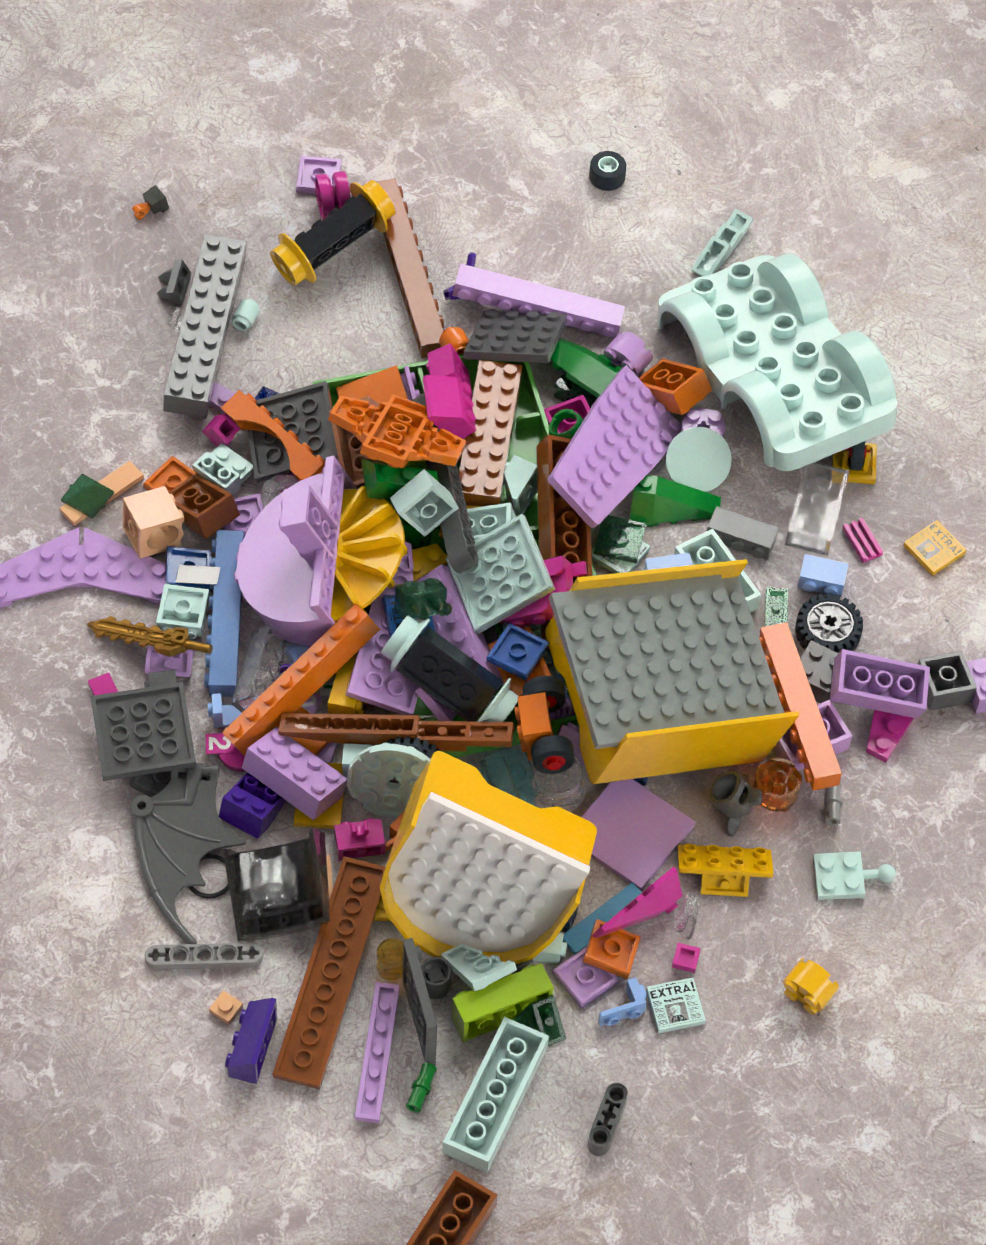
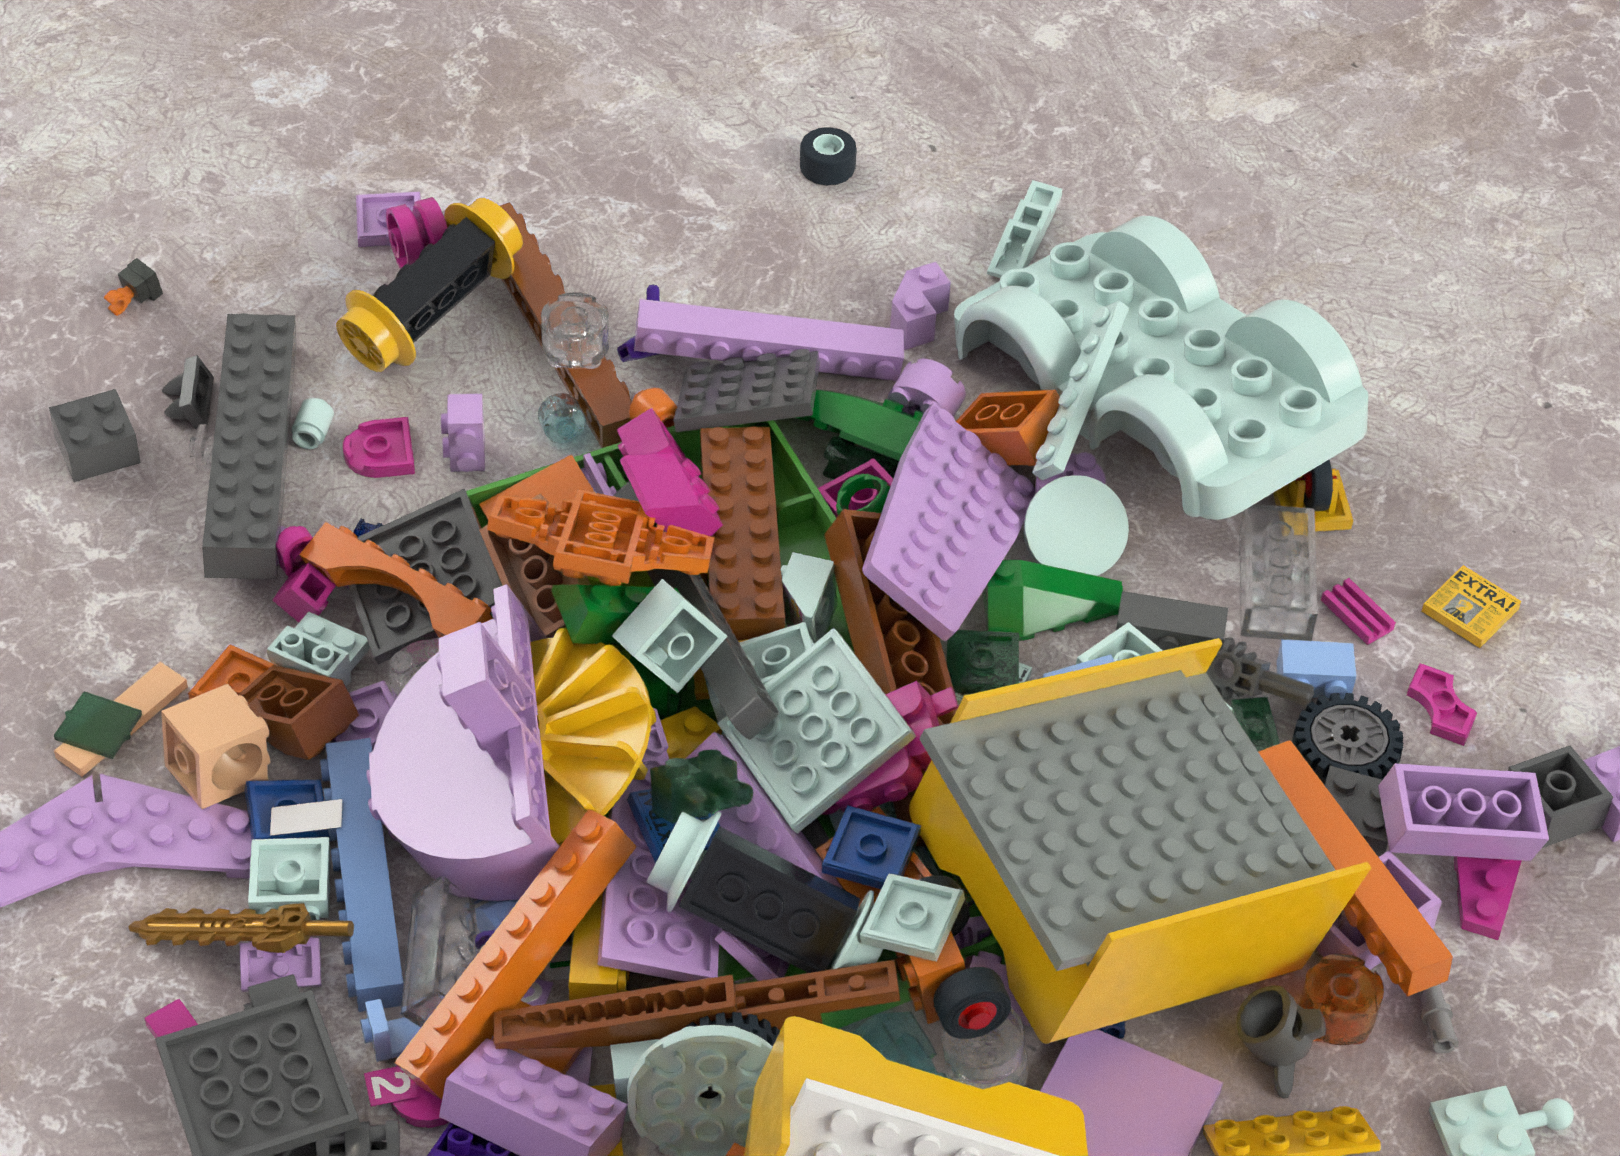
camera: 10 degrees left, 10 degrees down
(112, 304) = (94, 435): none -> dark grey brick
(217, 400) = (290, 545): none -> dark pink plate
(284, 337) = (380, 448): none -> dark pink tile
(336, 337) = (465, 432): none -> lavender brick
(398, 334) = (561, 415): none -> clear light blue head
(416, 279) = (575, 331): none -> clear brick
(527, 699) = (912, 917): none -> light aqua tile
(642, 281) = (917, 301): none -> lavender brick
(714, 377) = (1078, 395): none -> light aqua plate
(780, 572) = (1253, 676): none -> dark grey gear
(899, 617) = (1448, 714): none -> dark pink tile

